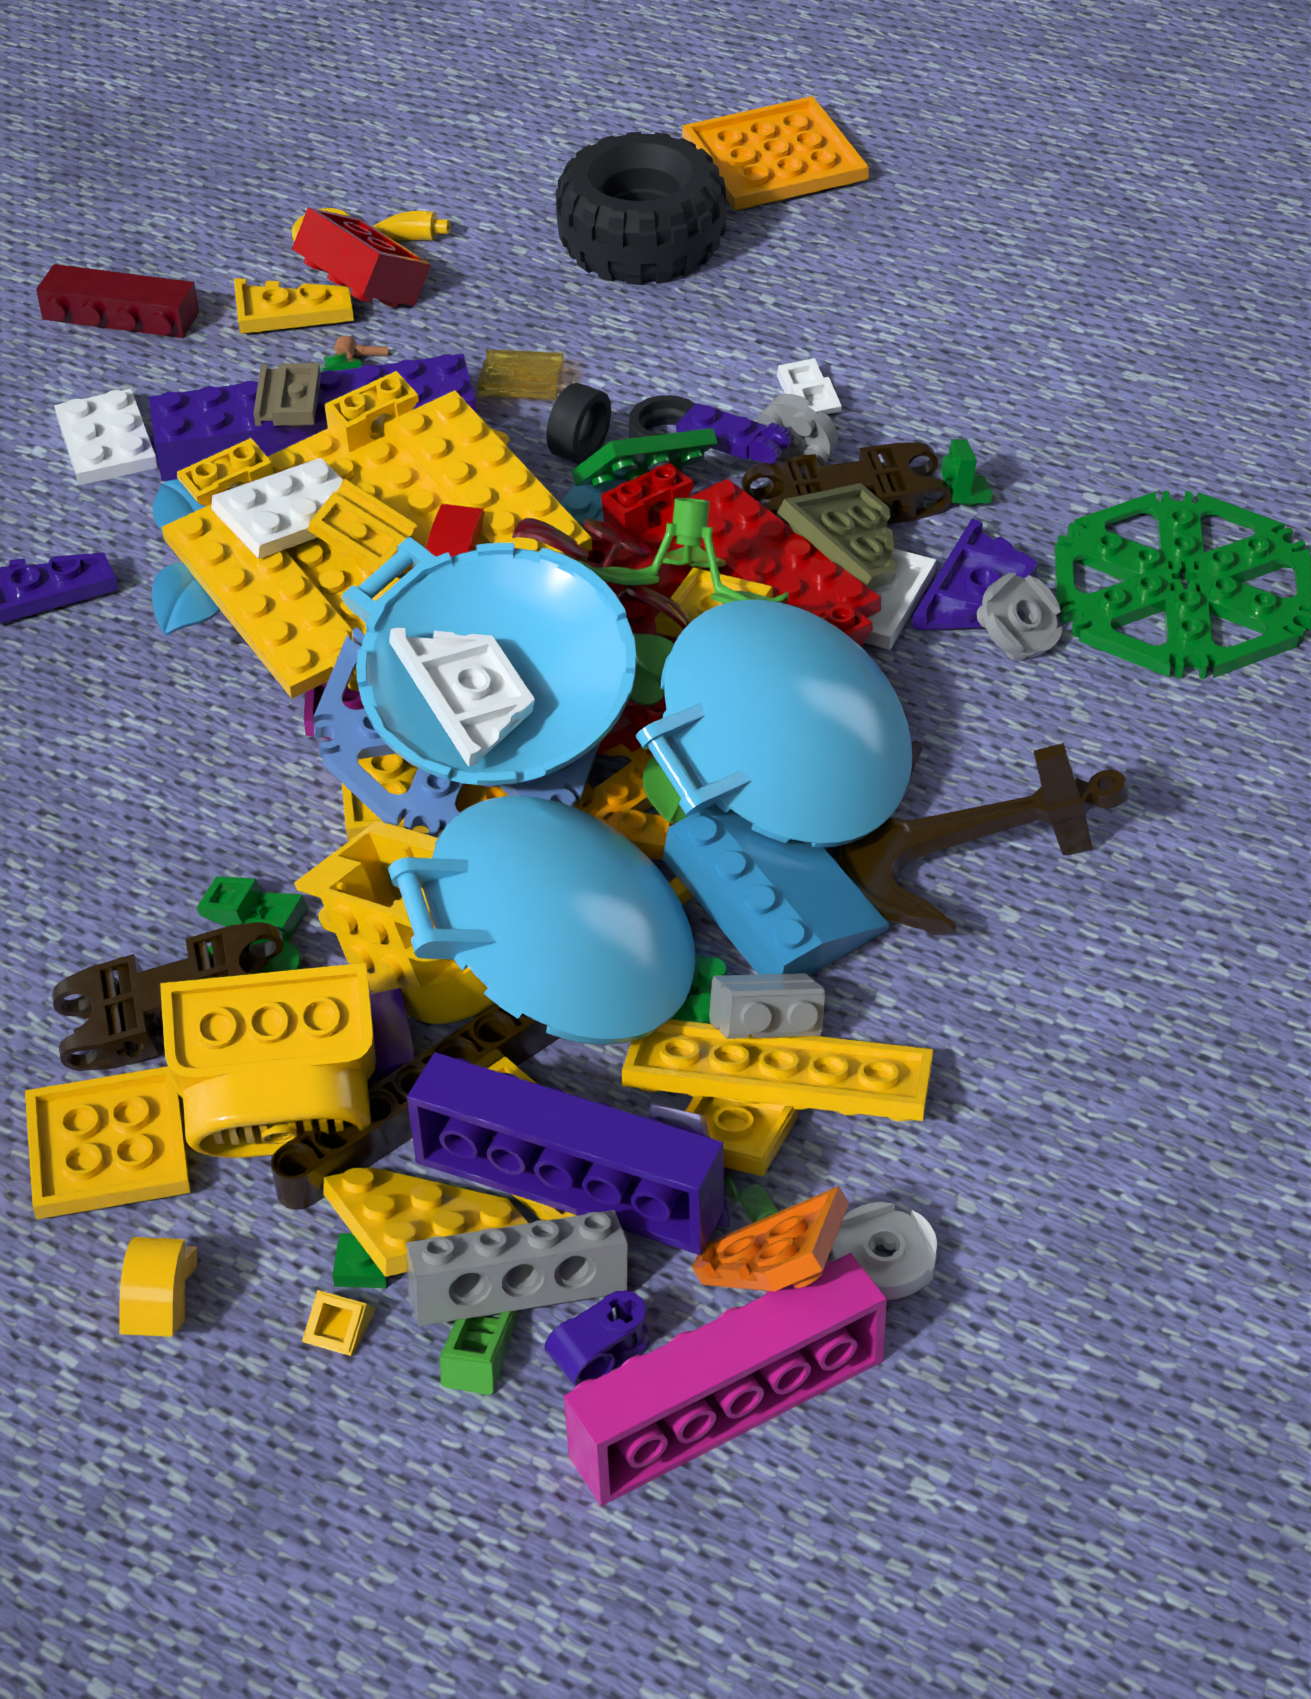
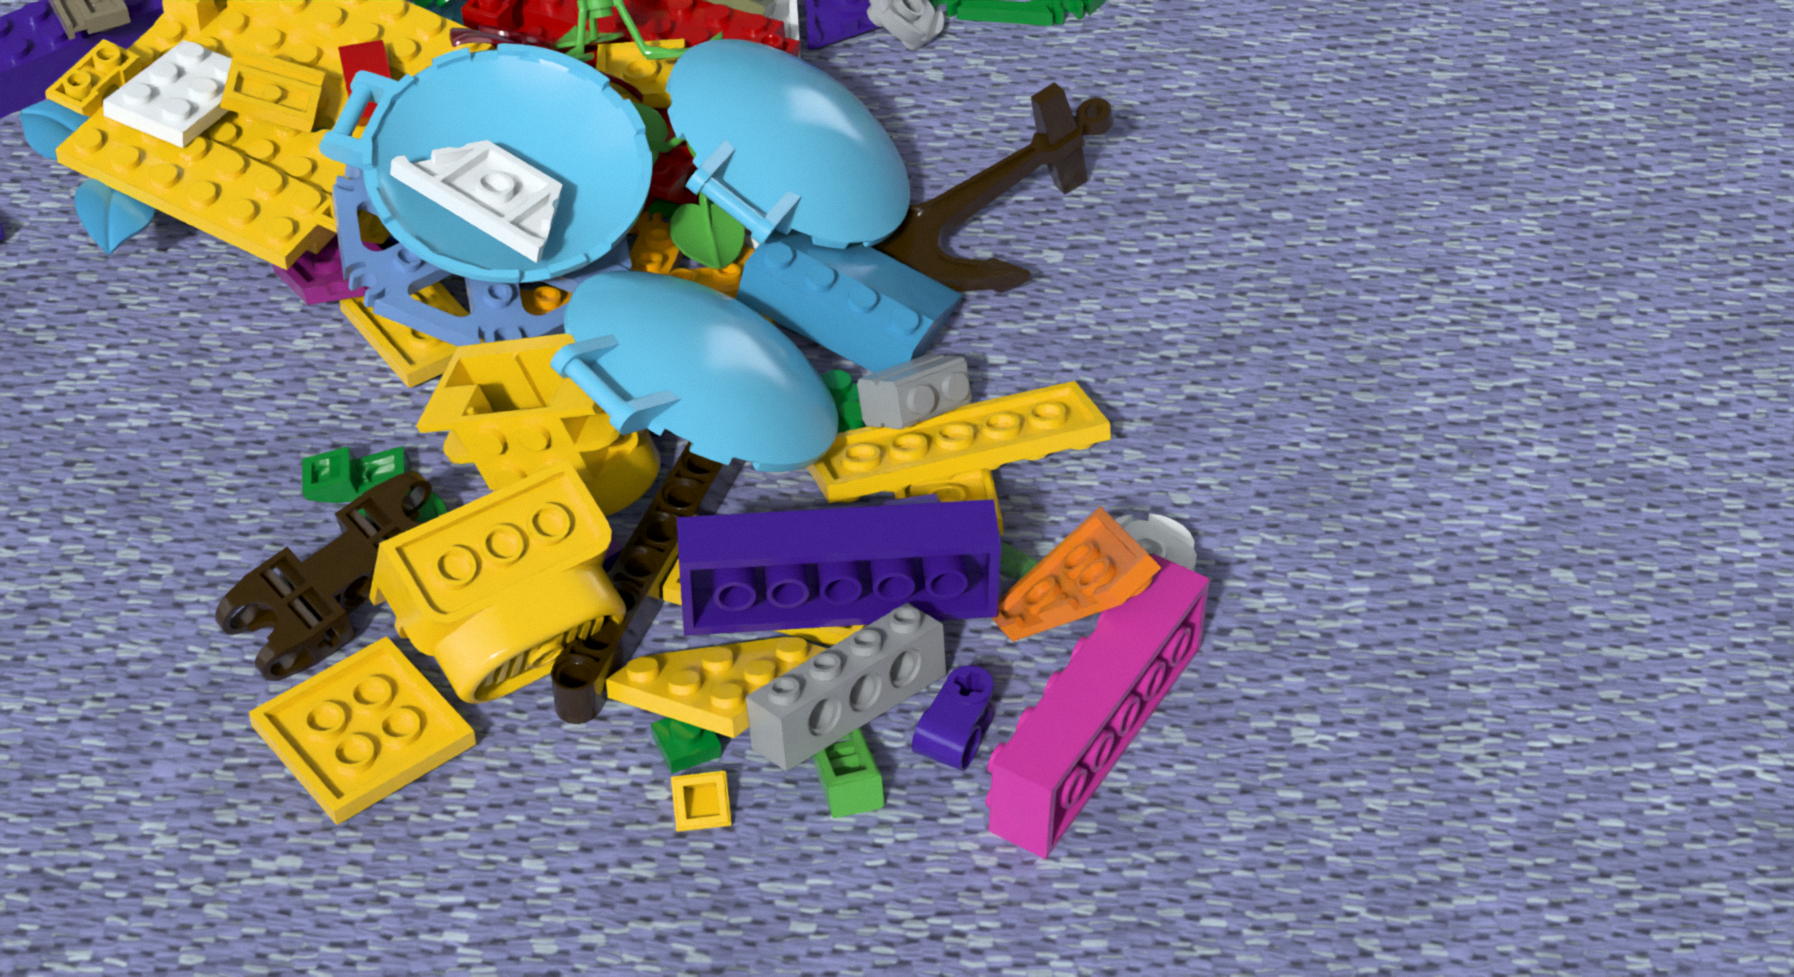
camera: 30 degrees left, 0 degrees up
(154, 1286) = (513, 832): yellow brick -> none

